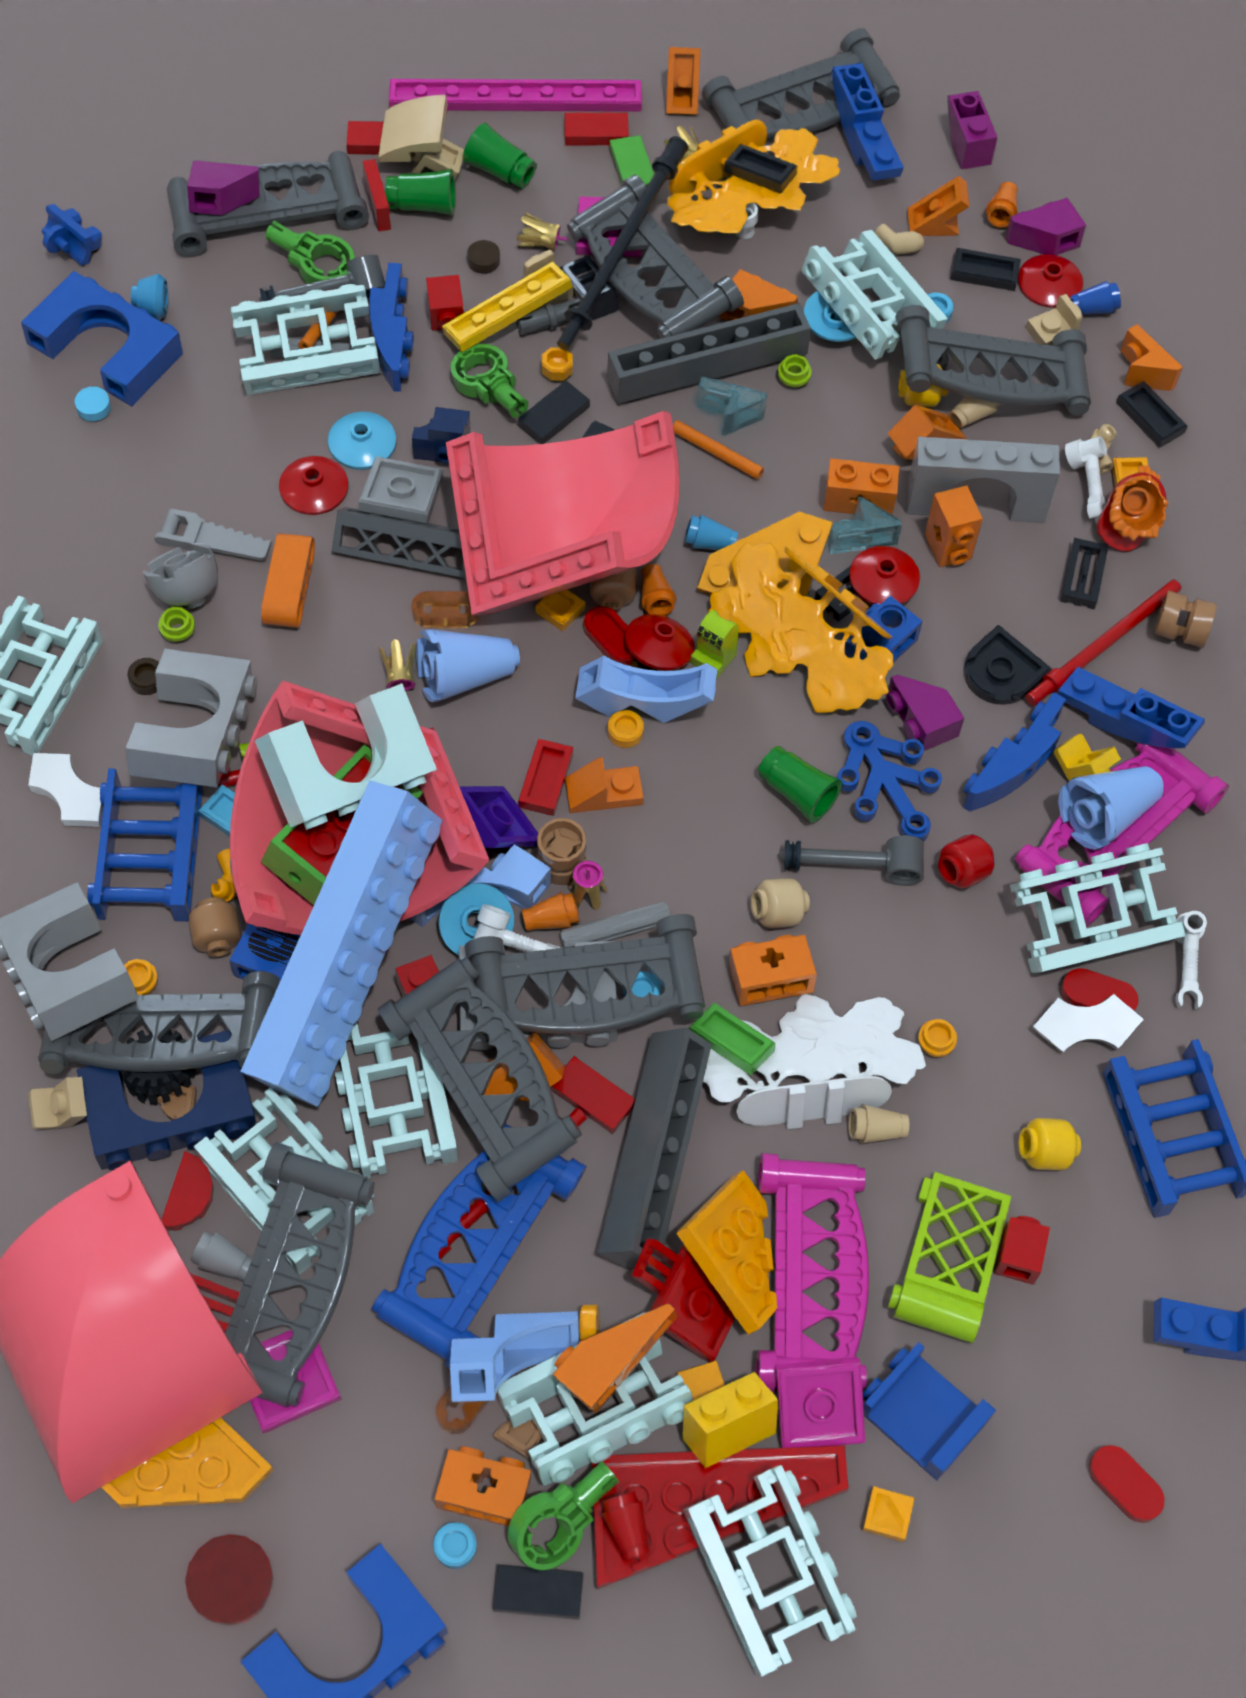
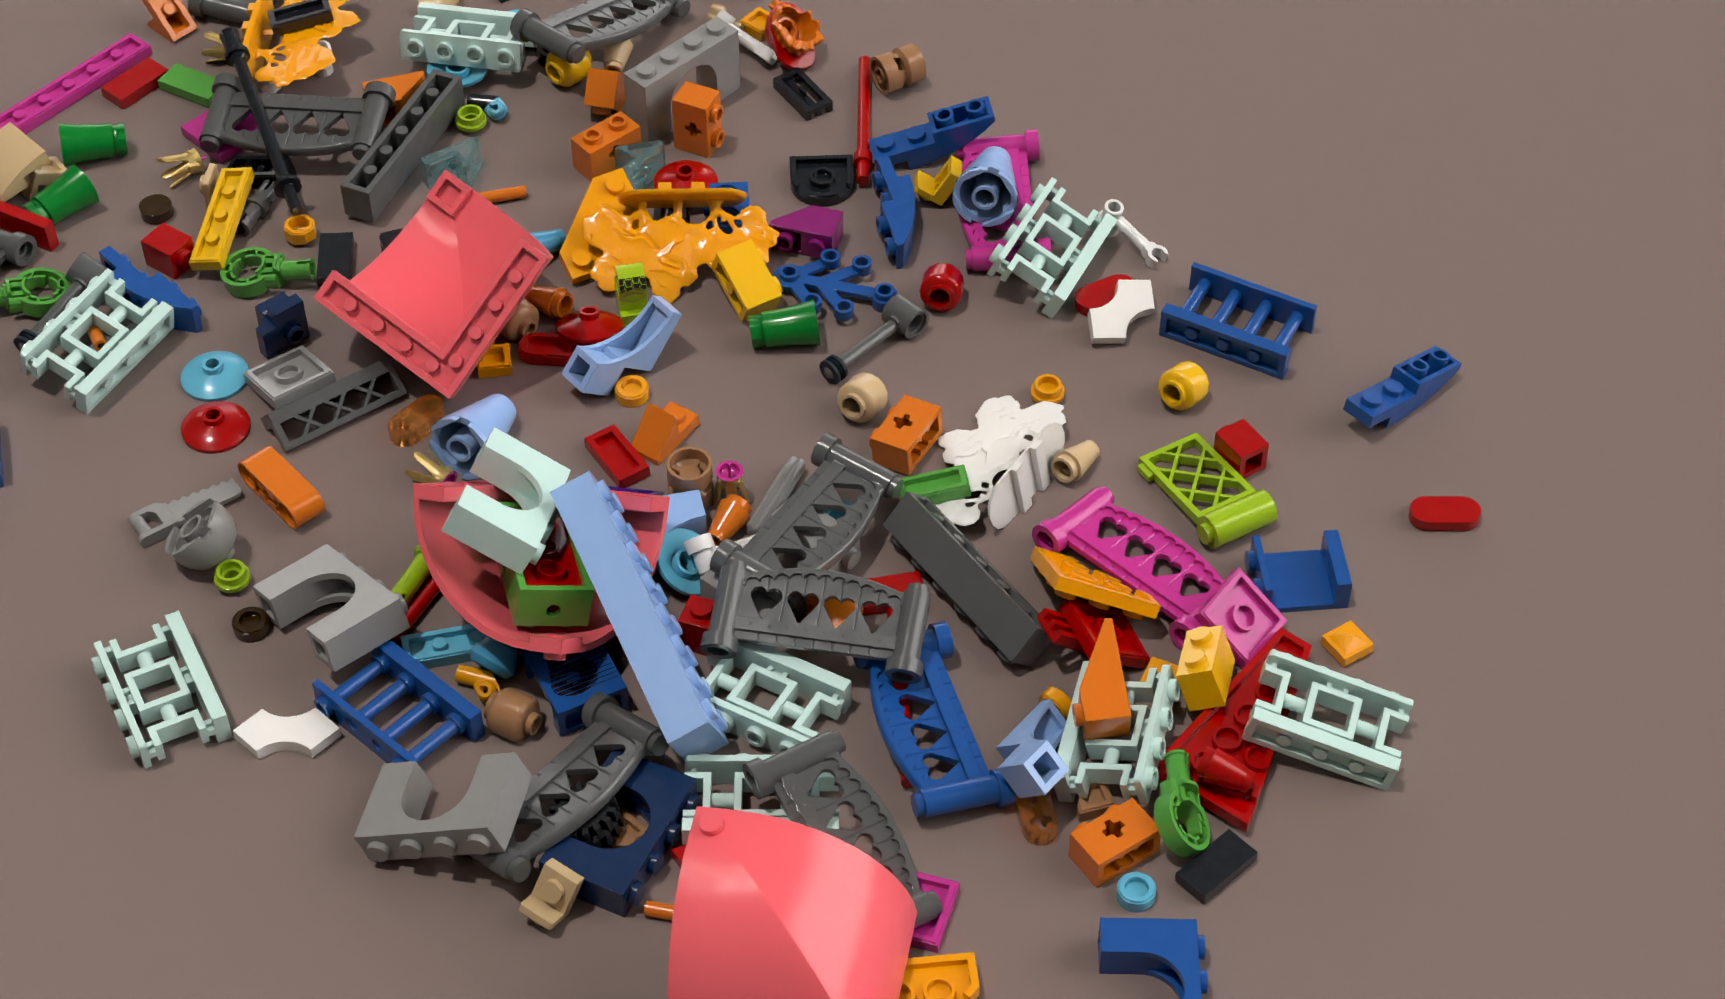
camera: 45 degrees left, 15 degrees down
(814, 712) = (746, 279): none -> yellow brick
(826, 369) = (490, 104): none -> arm

